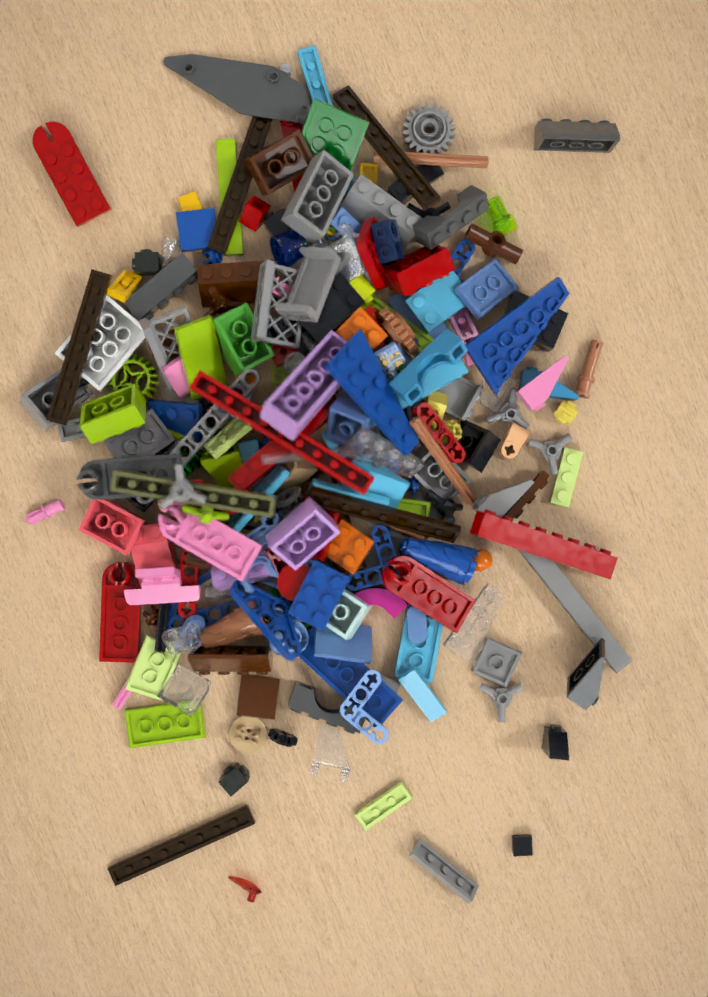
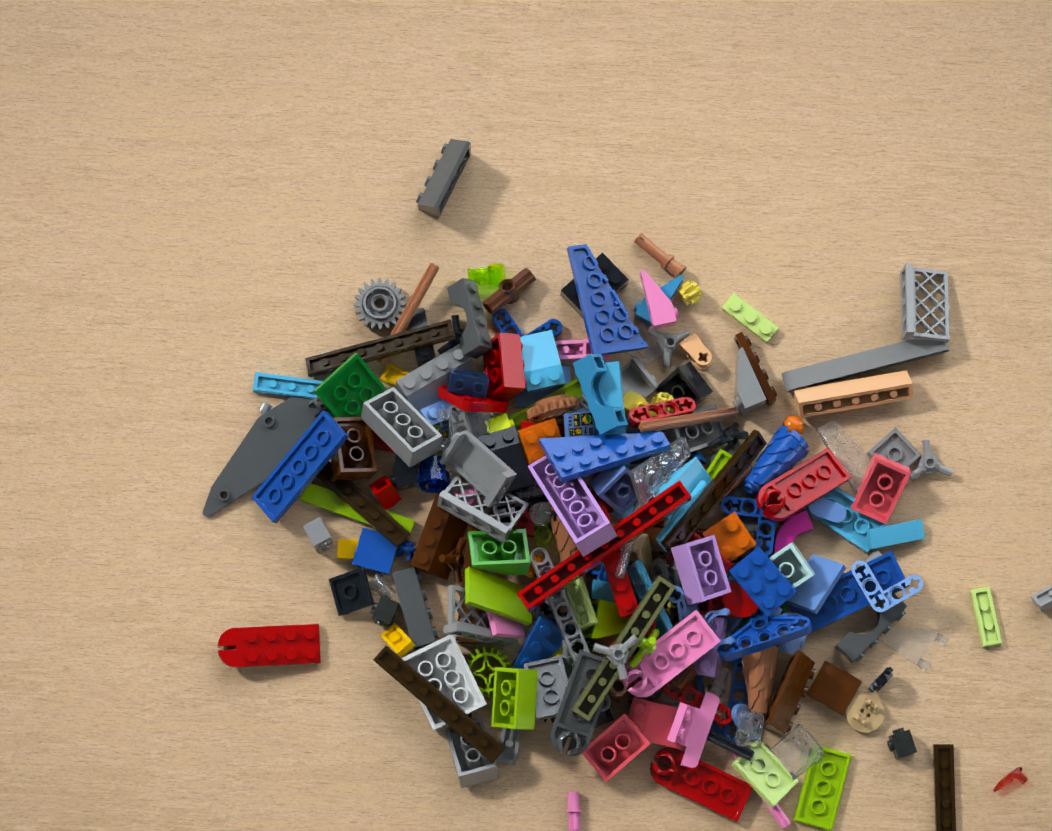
camera: 70 degrees left, 10 degrees down
(151, 224) = (351, 591): none -> black tile
(151, 620) = (718, 753): reddish brown plate -> none
(187, 168) = (318, 534): none -> light grey brick
(241, 121) = (300, 466): none -> blue plate
(458, 664) = (880, 488): none -> coral slope
(486, 289) = (547, 315): medium blue tile -> none
(535, 602) = (853, 394): none -> light nougat brick
(539, 543) = (803, 363): brick -> none
(551, 450) = (719, 321): light grey piece -> none
(555, 742) = (990, 431): black slope -> none
(585, 680) = (944, 380): slope -> none
(648, 617) = (909, 306): none -> light grey fence

